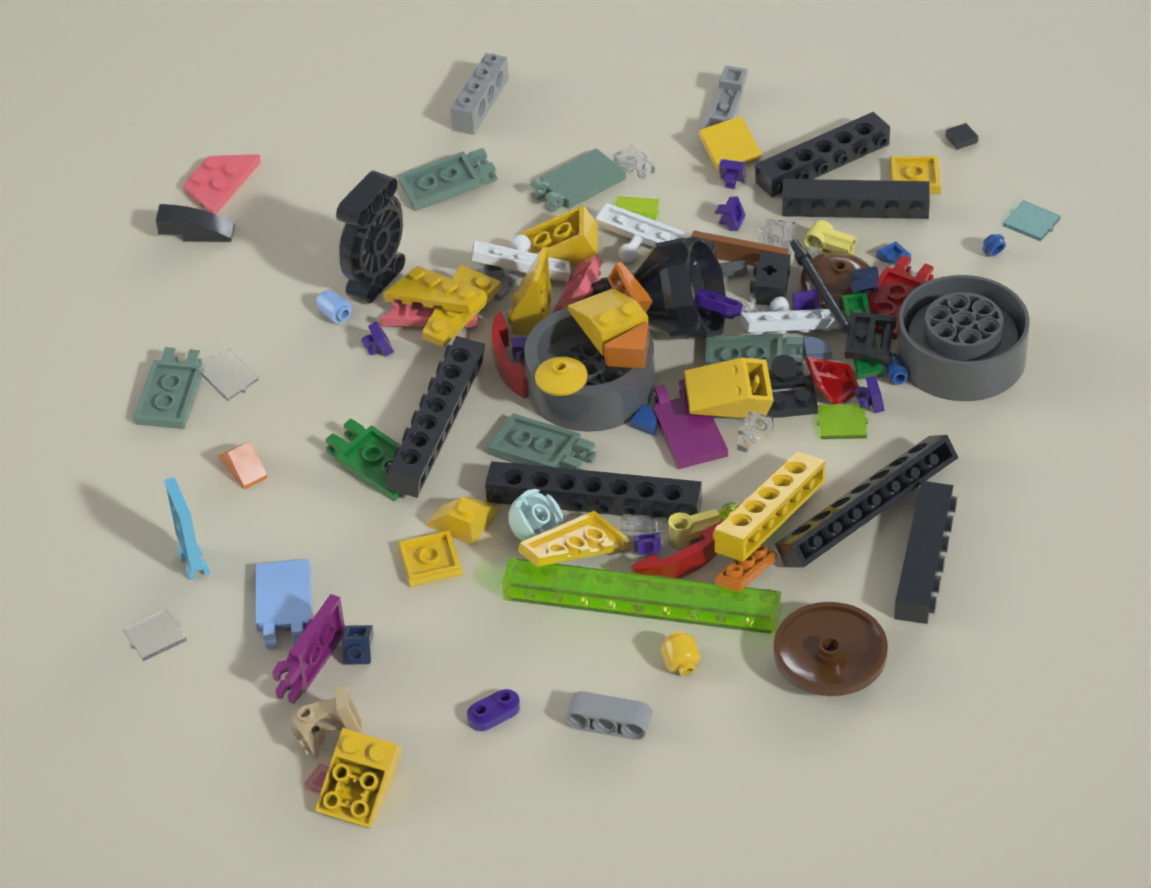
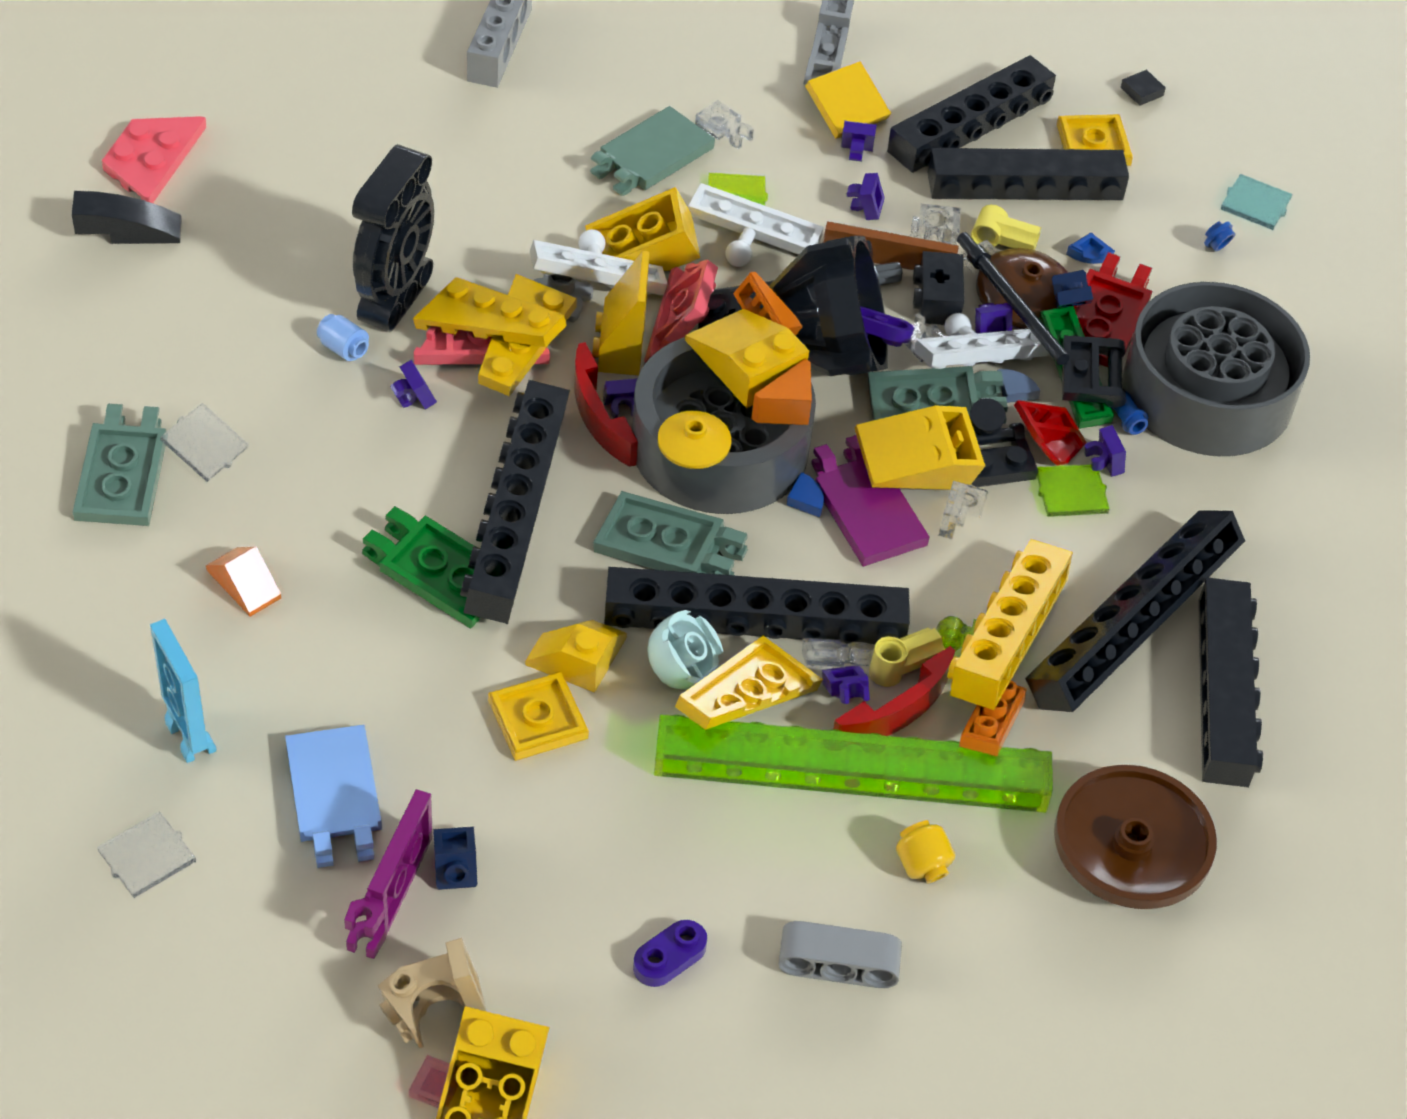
camera: 15 degrees left, 5 degrees up
(447, 178) = (477, 148): sand green tile -> none

